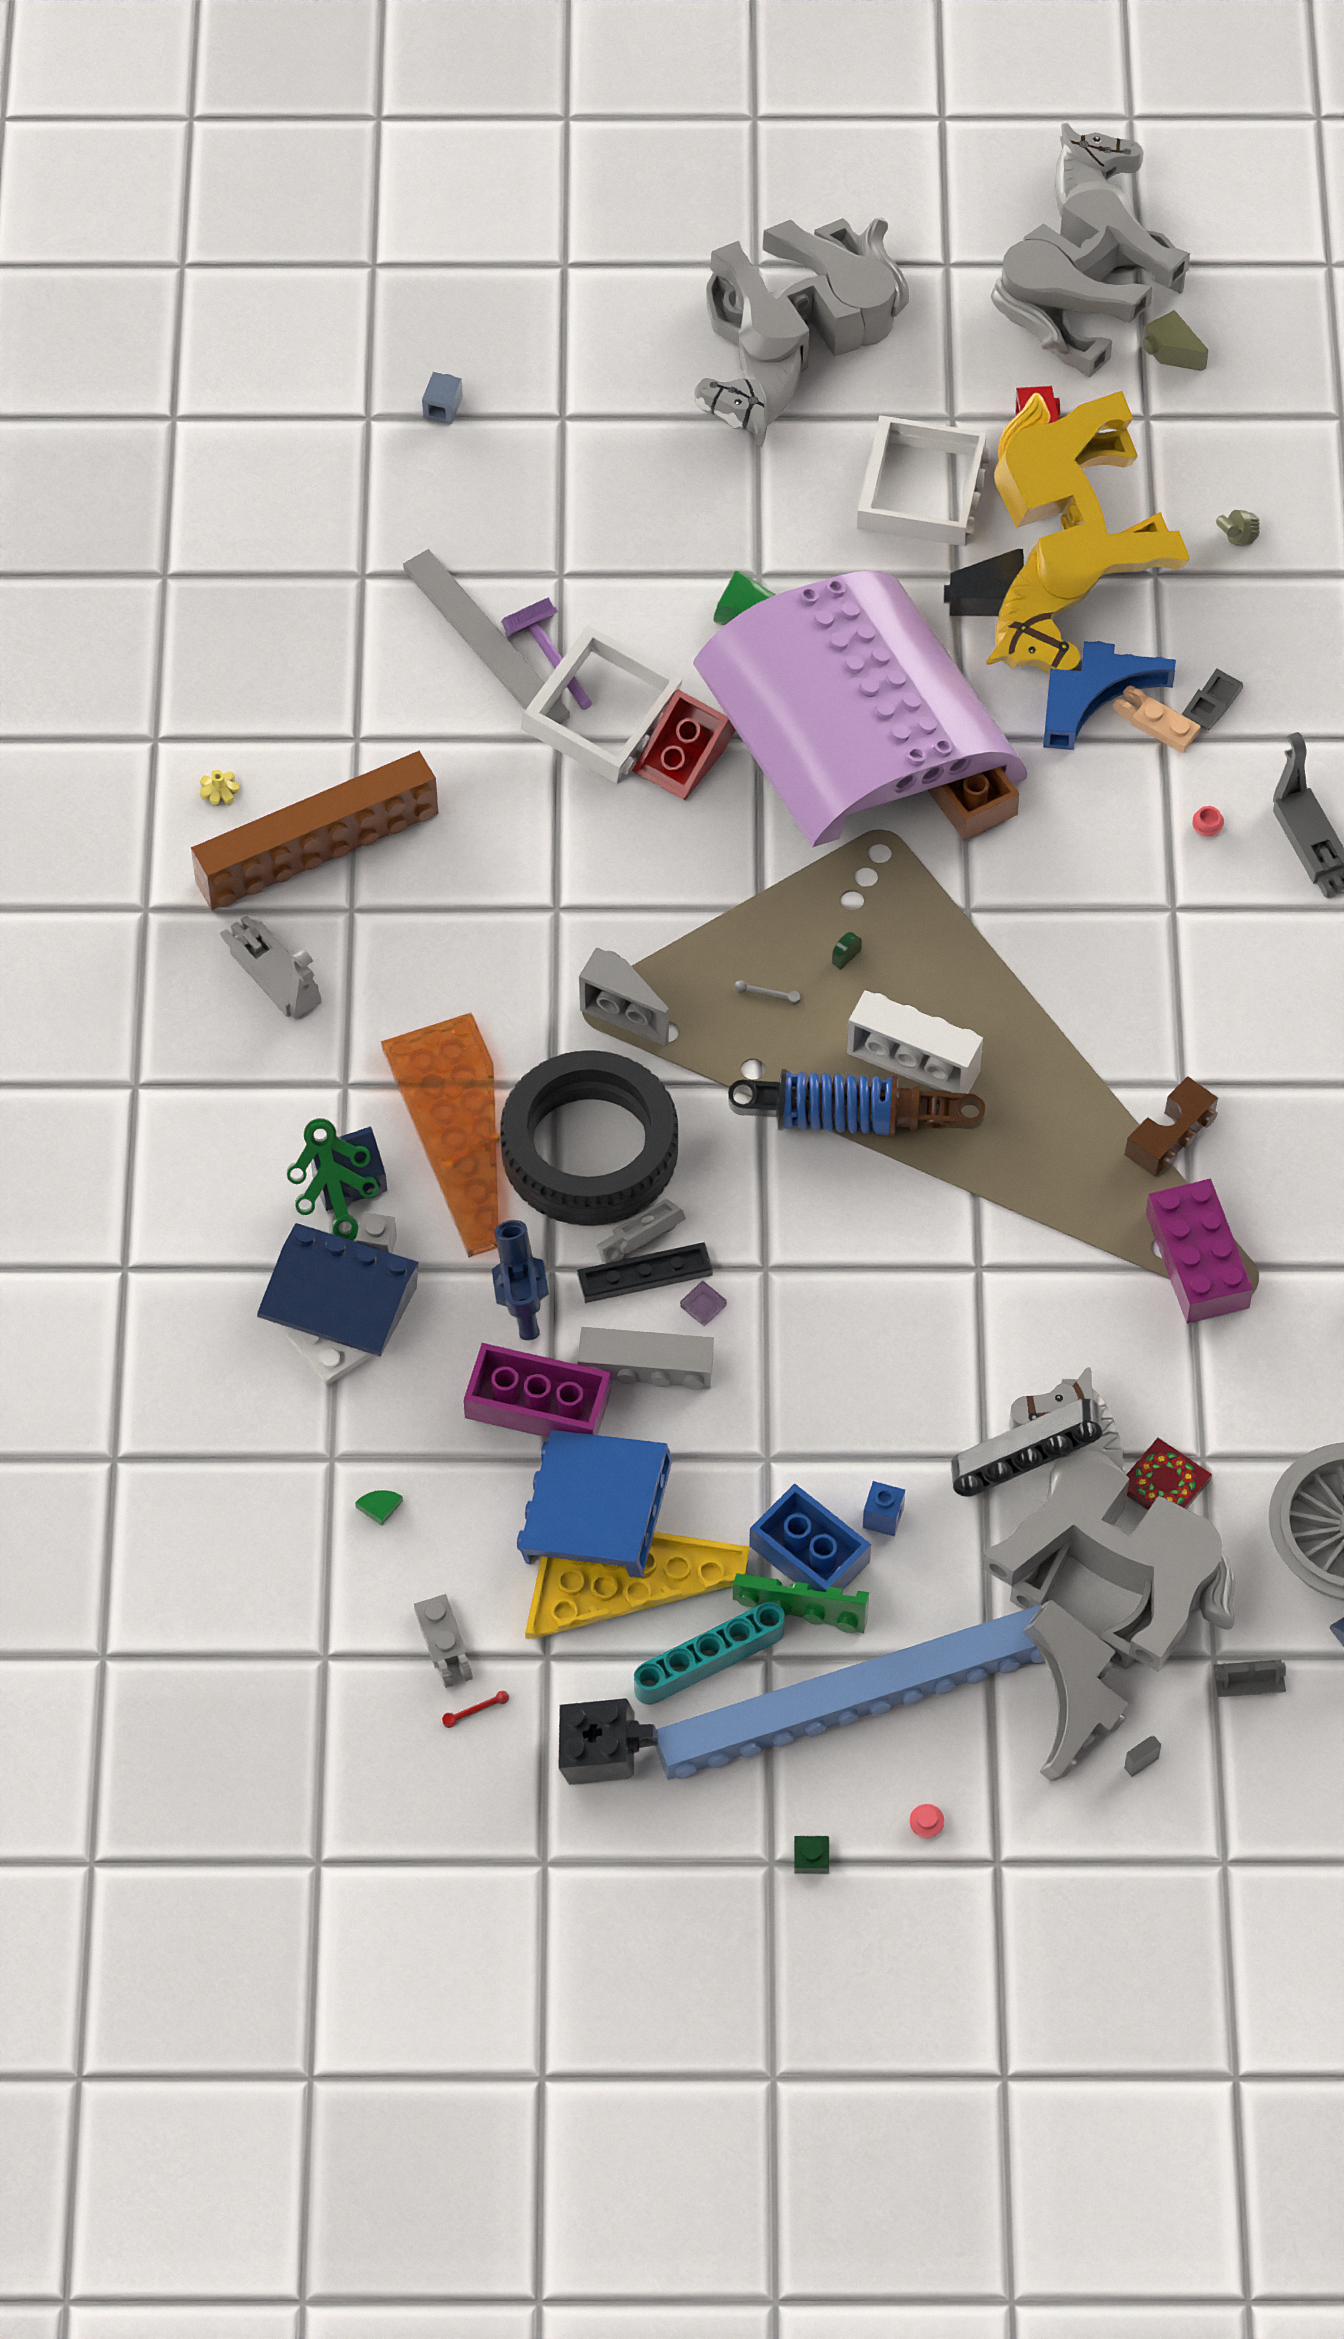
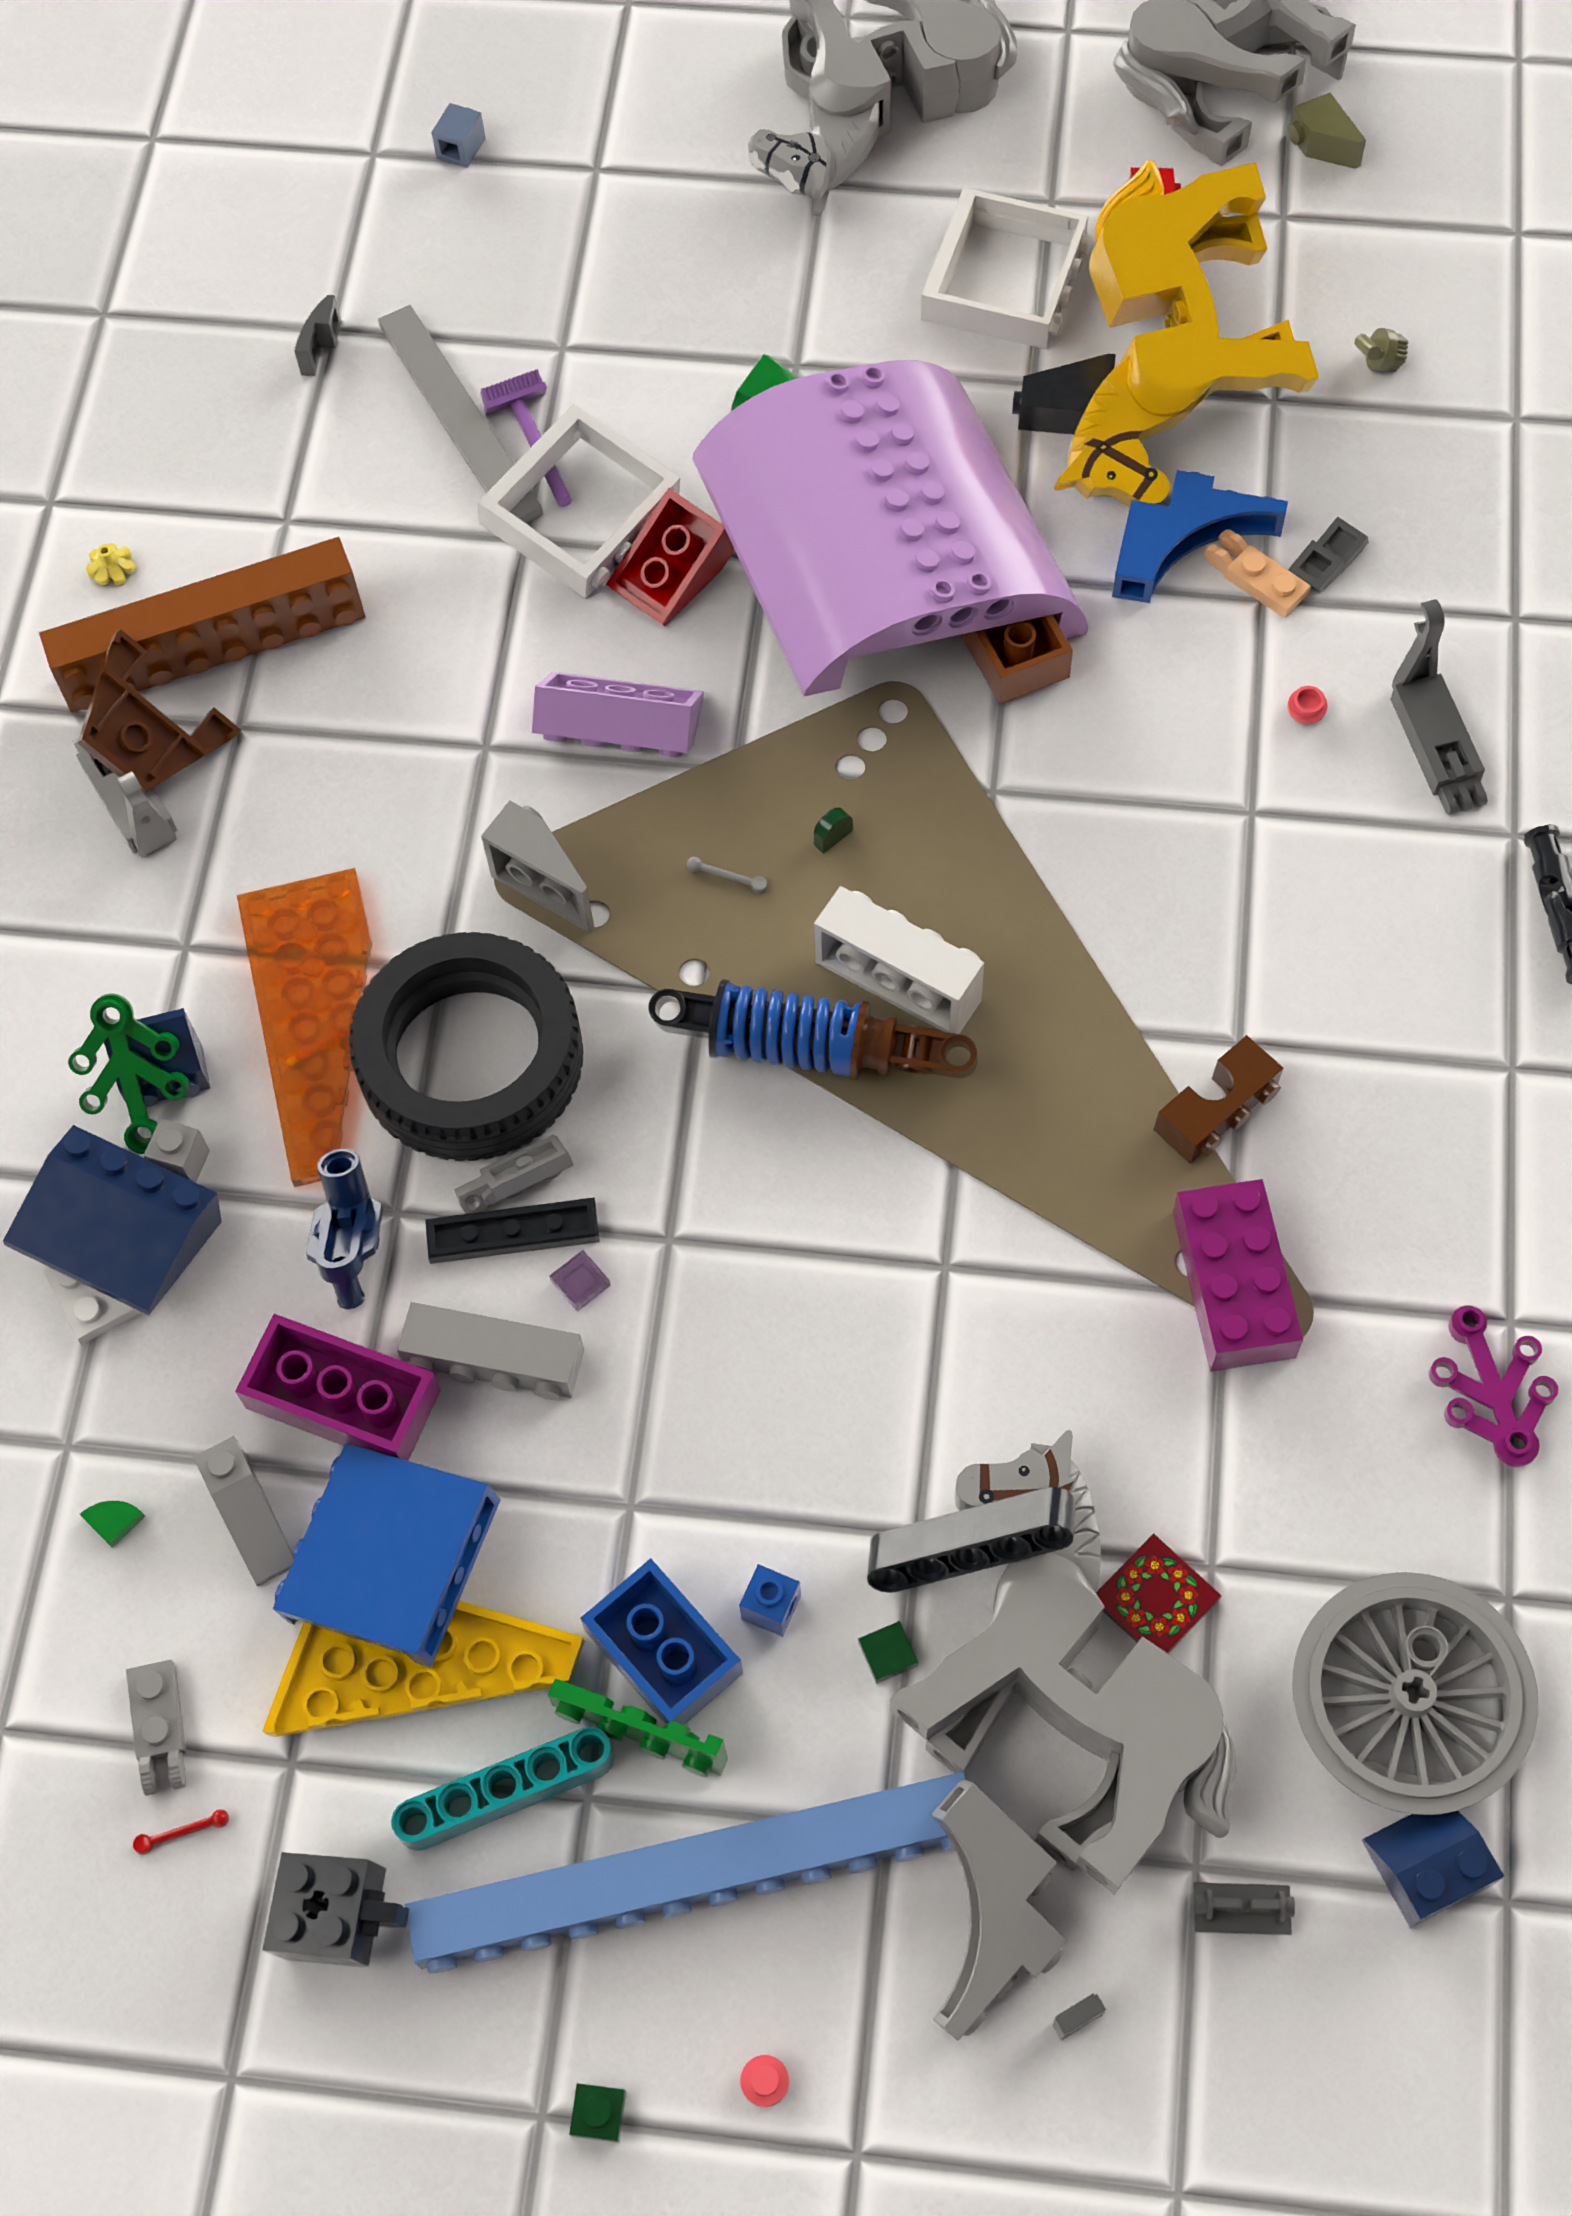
camera: 10 degrees right, 5 degrees up
(280, 921) = (135, 735): none -> reddish brown wing
(356, 580) = (318, 332): none -> dark grey slope
(480, 1486) = (245, 1510): none -> light grey slope
(660, 873) = (616, 713): none -> lavender slope
(973, 1537) = (888, 1652): none -> dark green tile

